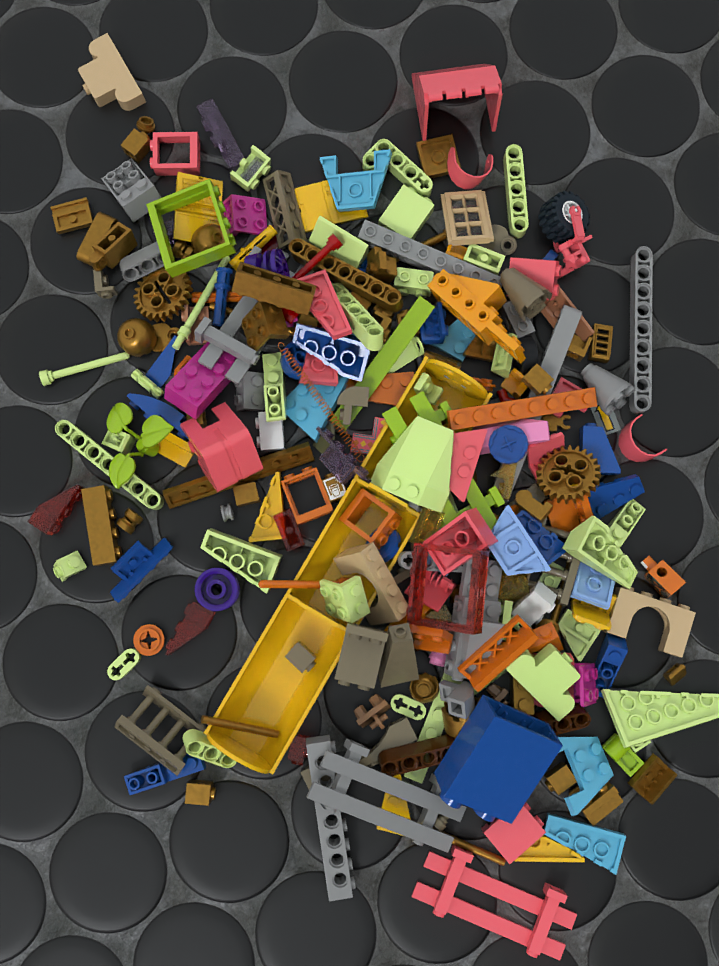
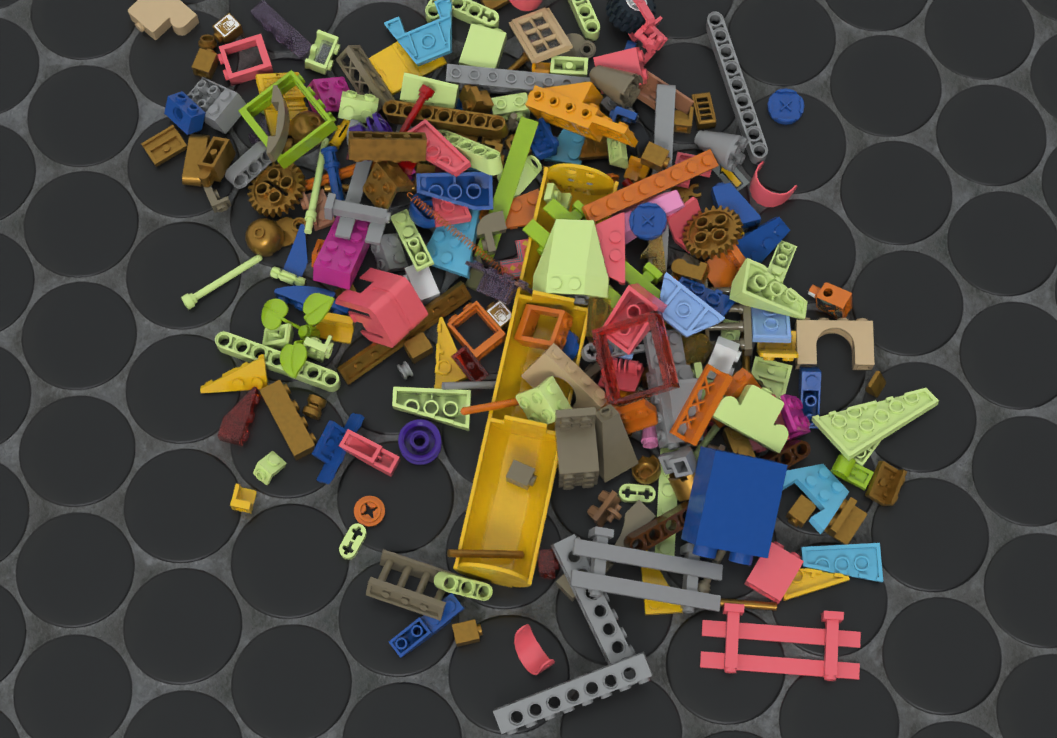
camera: 20 degrees left, 10 degrees down
(34, 589) = (243, 499): none -> yellow panel
(72, 471) = (240, 378): none -> yellow wing
(99, 189) = (184, 112): none -> blue brick
(147, 465) = (318, 350): none -> yellowish green bracket
(166, 584) = (370, 452): none -> coral slope
(168, 117) = (227, 29): none -> pearl gold brick
(168, 251) = (277, 143): none -> dark tan slope
(195, 622) = (409, 480): clear red slope -> none
(257, 833) = (530, 651): none -> coral piece
(265, 234) = (357, 106): none -> yellowish green bracket
(280, 550) = (468, 385): none -> light grey bar
(286, 883) = (504, 713): none -> light grey brick
(410, 298) = (512, 123): none -> dark tan bar
(522, 328) = (625, 115): none -> blue bracket
(682, 364) = (785, 106): none -> blue tile

